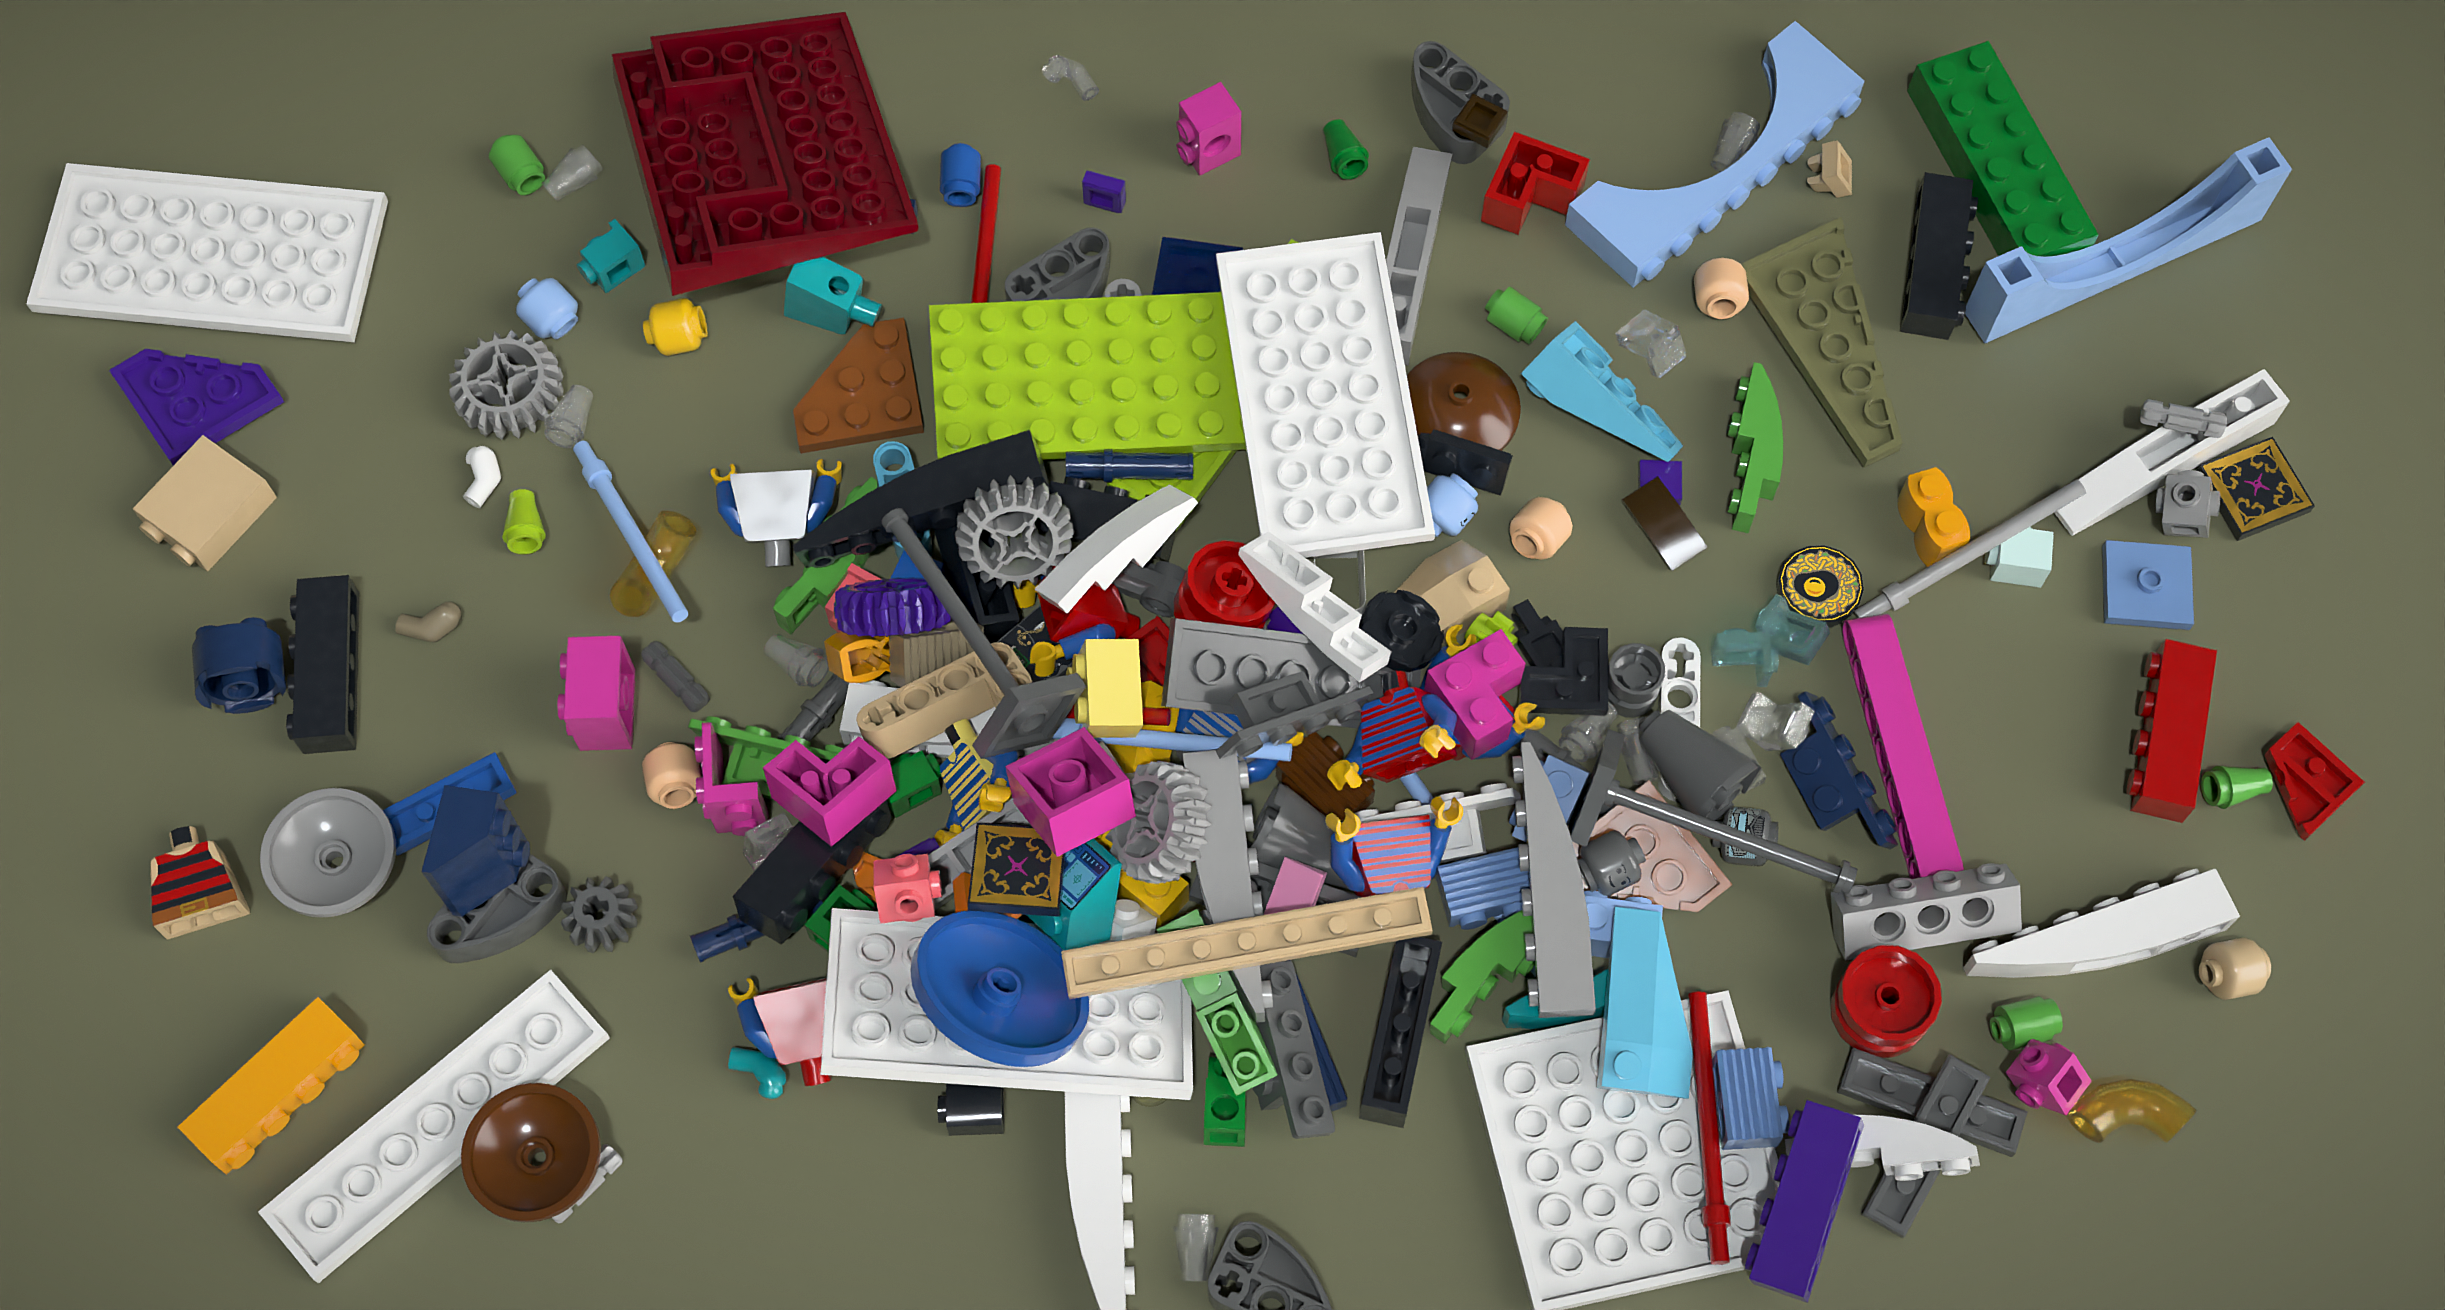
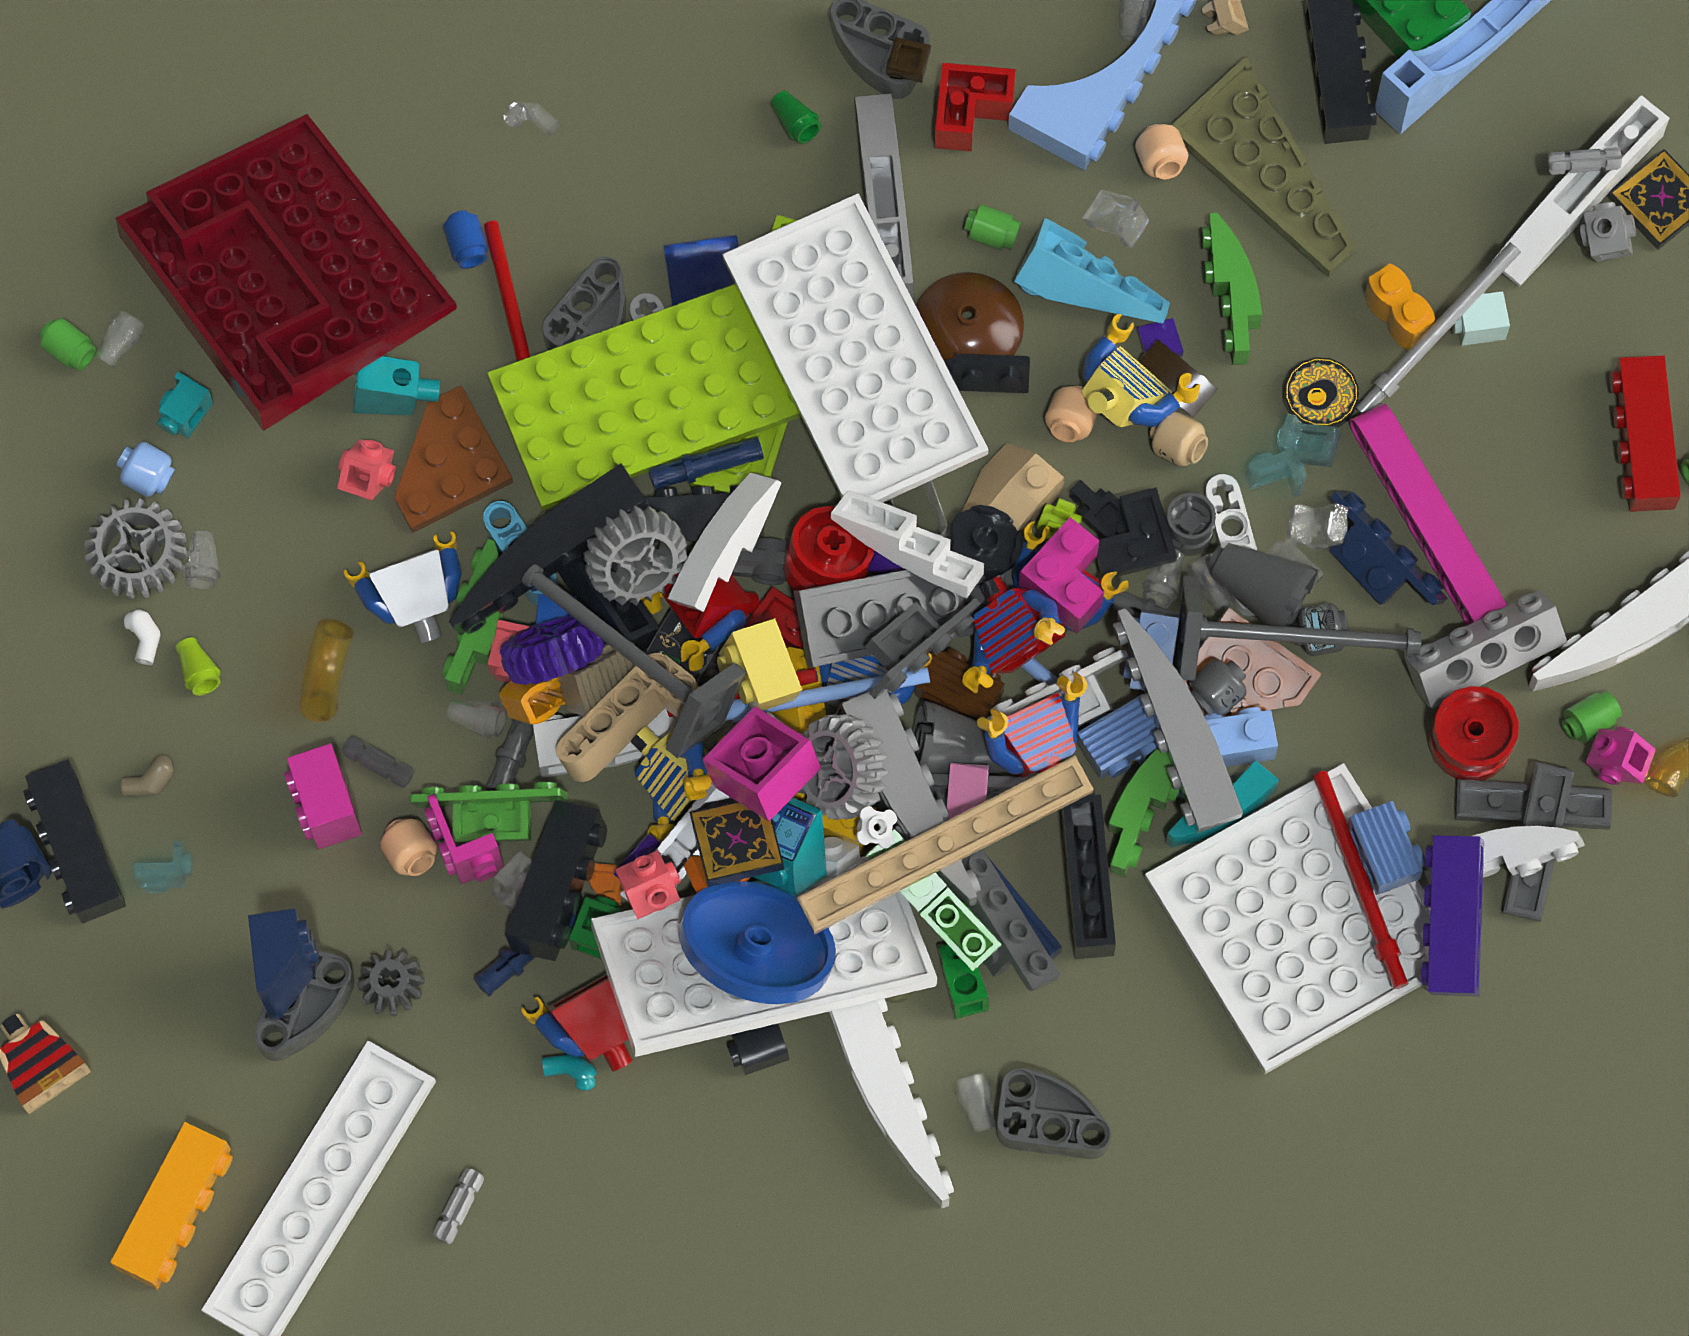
camera: 15 degrees left, 5 degrees up
(313, 833) = (128, 981): light grey dish -> none
(399, 727) = (160, 876): none -> clear light blue bracket
(416, 814) = (223, 929): blue plate -> none
(508, 1135) = (396, 1170): reddish brown dish -> none
(599, 478) = (248, 607): light blue bar -> none
(675, 326) = (265, 453): yellow head -> none
(772, 371) = (366, 469): none -> coral brick
(833, 794) = (556, 826): dark pink brick -> none
(915, 781) = (610, 791): green brick -> none
(1104, 192) = (598, 218): dark purple tile -> none
(1164, 905) = (865, 827): none -> white plate
(1209, 129) = (673, 135): dark pink brick -> none
(1451, 504) = (990, 414): light blue head -> none
(1606, 516) = (1125, 388): none -> torso
(1643, 1021) = (1283, 811): medium azure wedge -> none
(1649, 588) = (1179, 439): none -> tan head
(2147, 585) = (1593, 311): medium blue plate -> none

